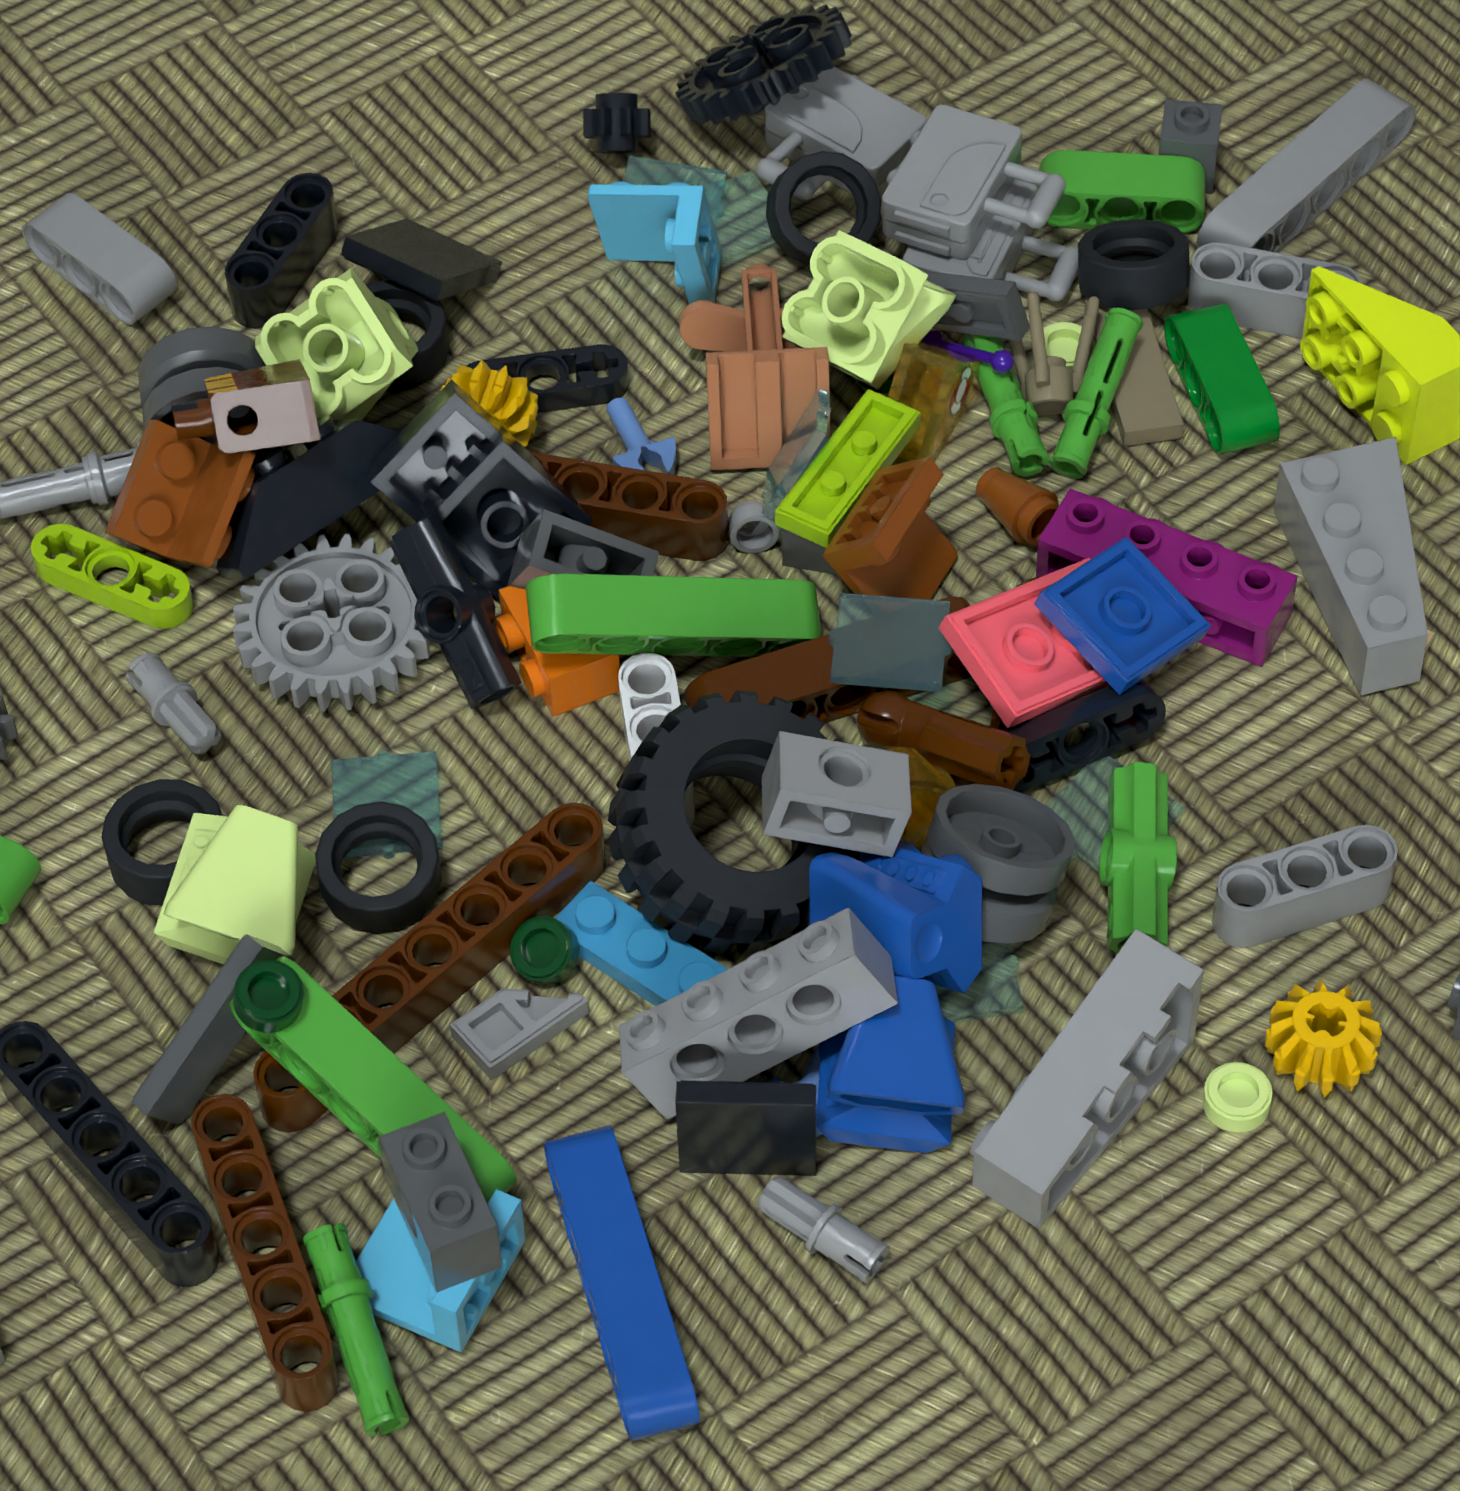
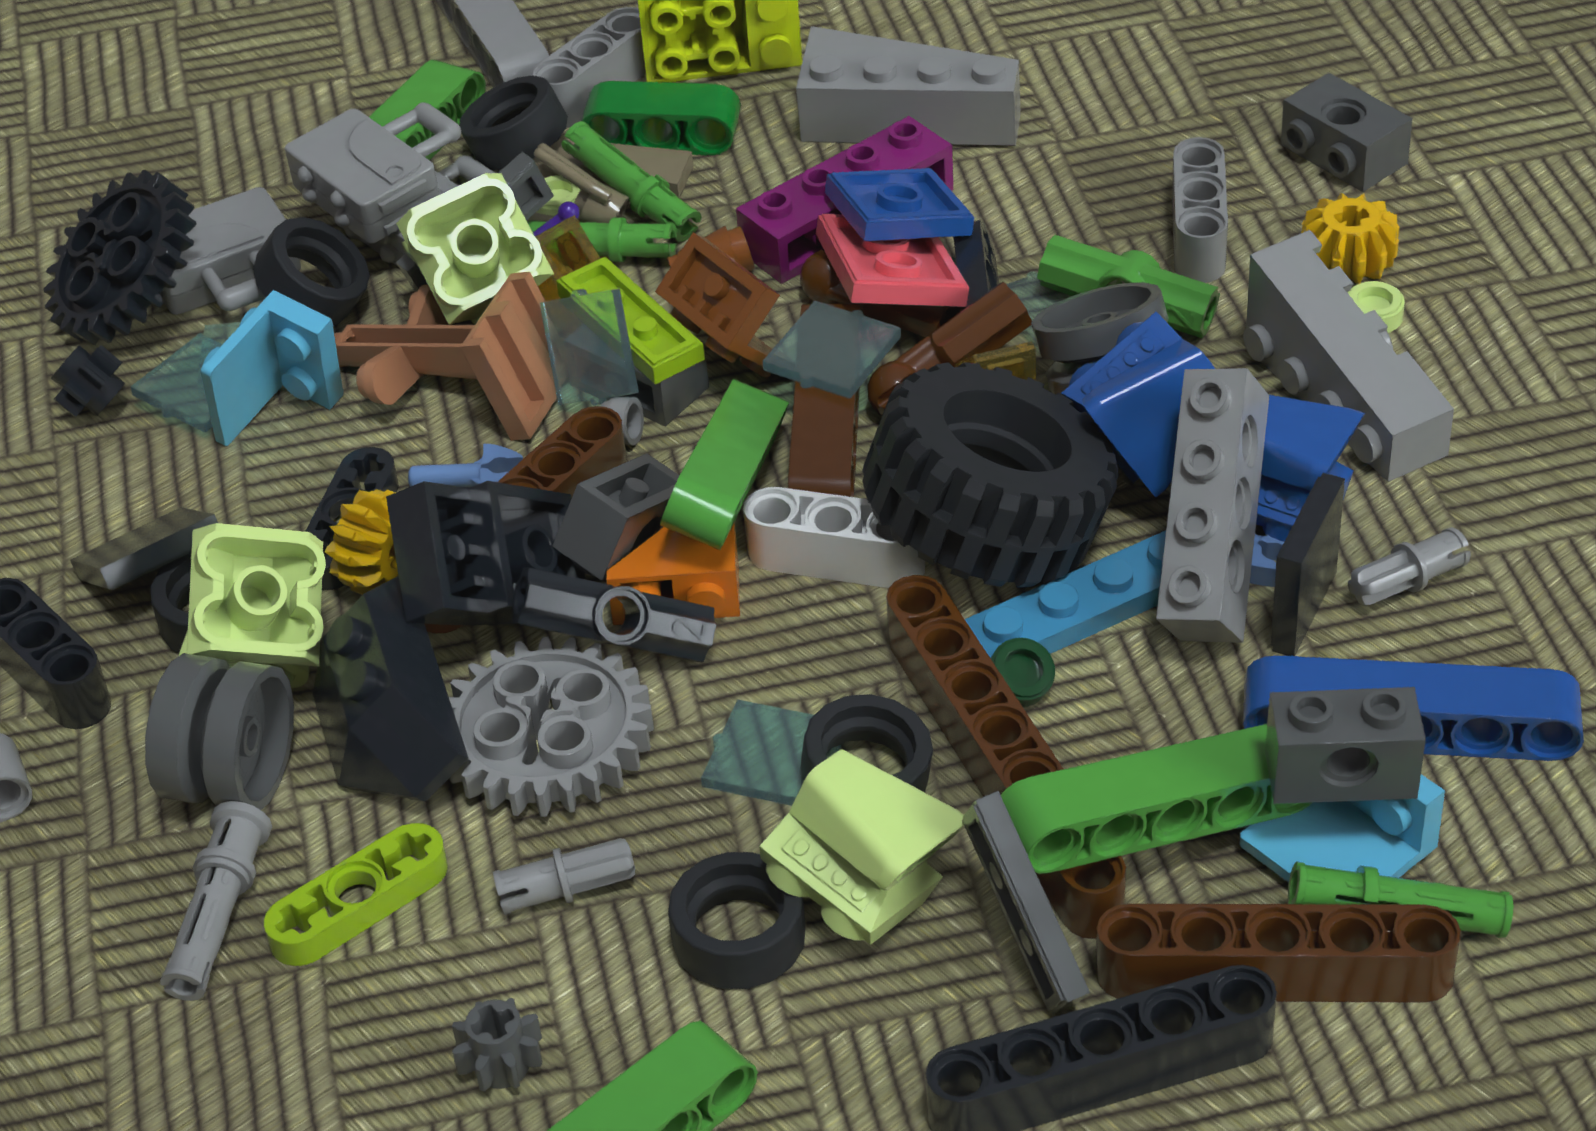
camera: 65 degrees left, 10 degrees down
(180, 497) = (343, 769): dark orange bracket -> none
(268, 996) = (1058, 802): dark green tile -> none
(278, 412) = (318, 639): torso -> none
(514, 1026) = (1087, 722): light grey tile -> none
(836, 794) = (1041, 362): light grey brick -> none
(1192, 132) = (400, 53): dark grey brick -> none

